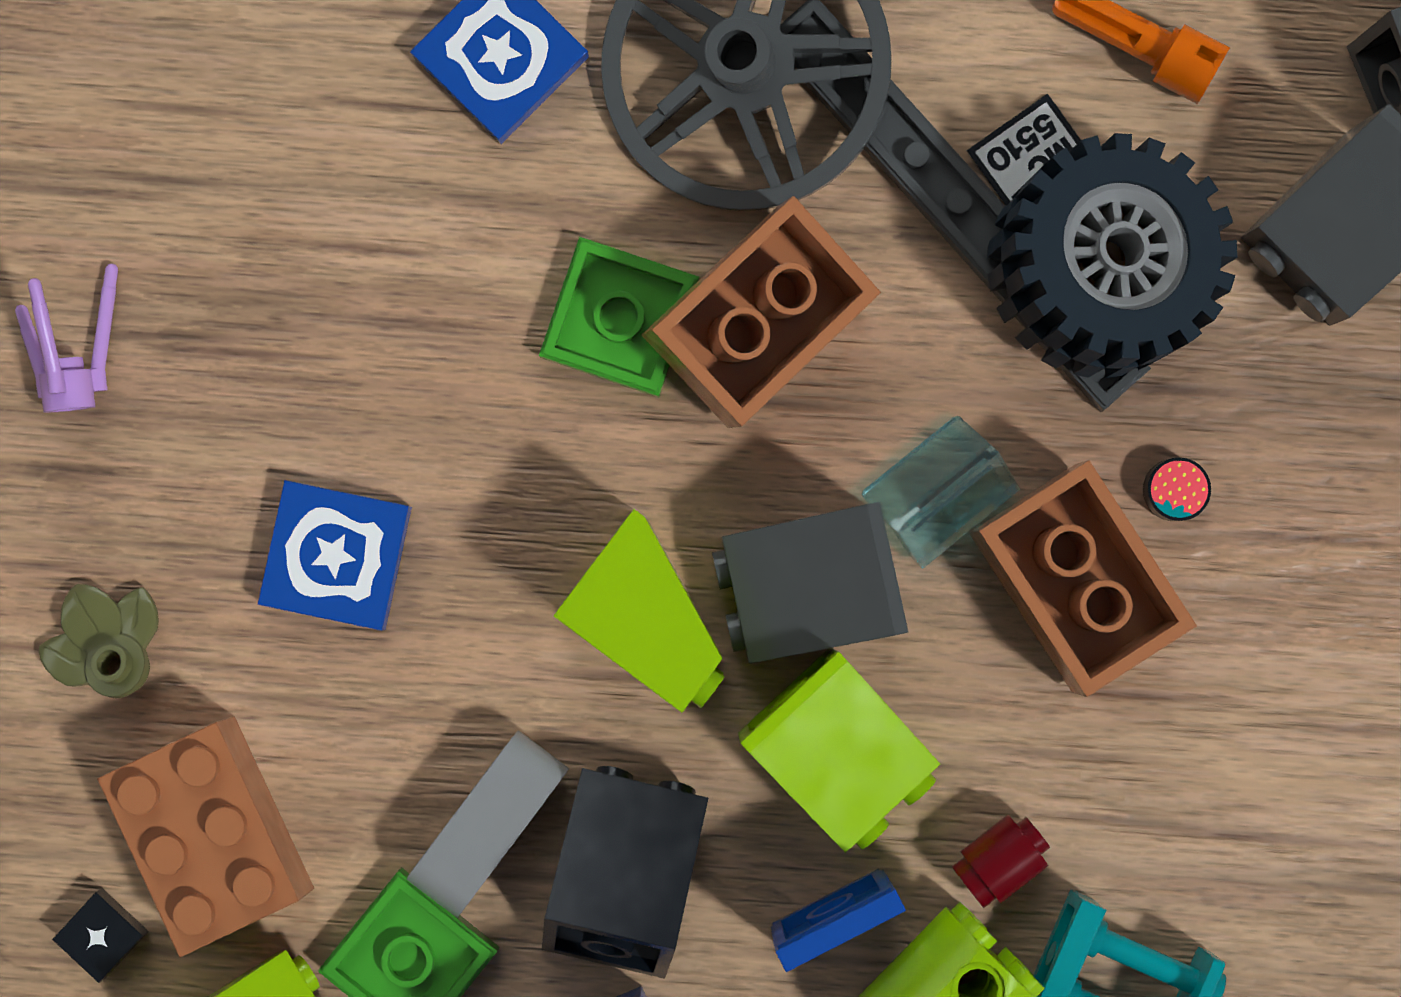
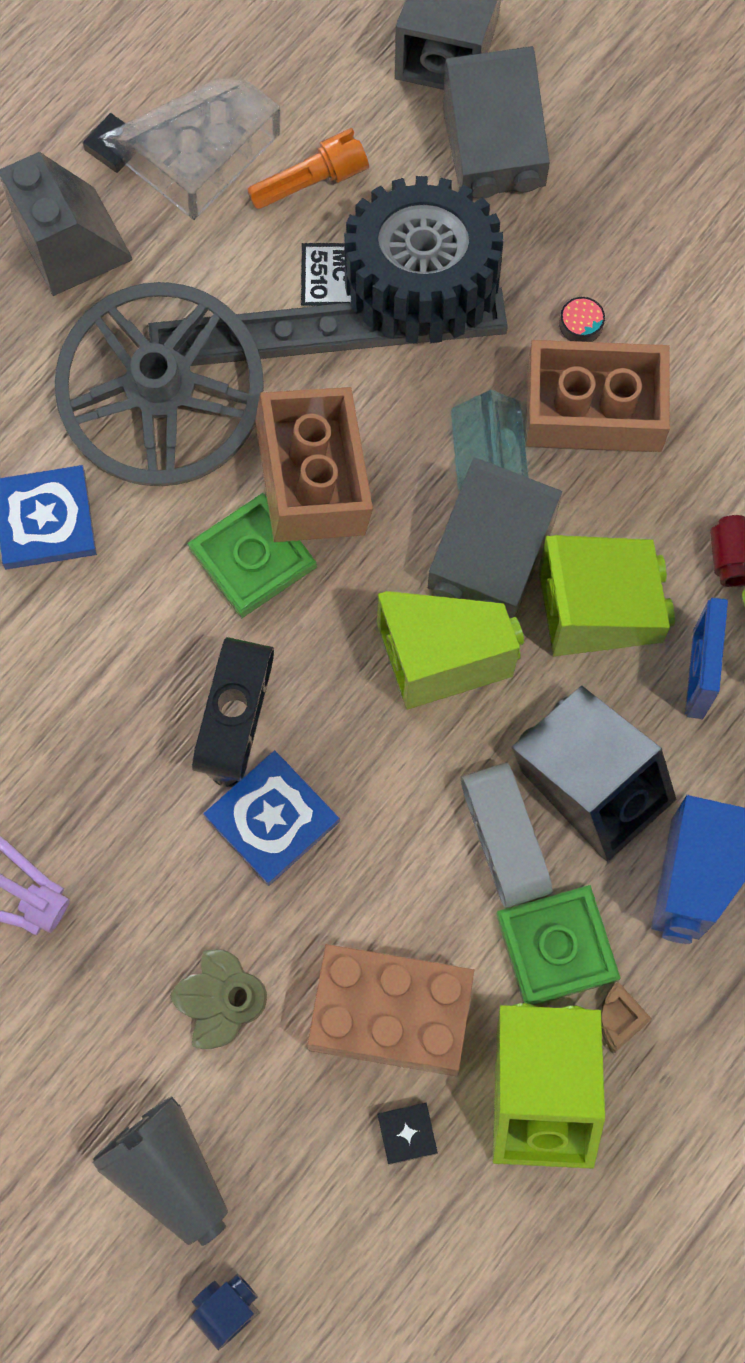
camera: 55 degrees left, 15 degrees down
(353, 453) = (227, 741): none -> black piece

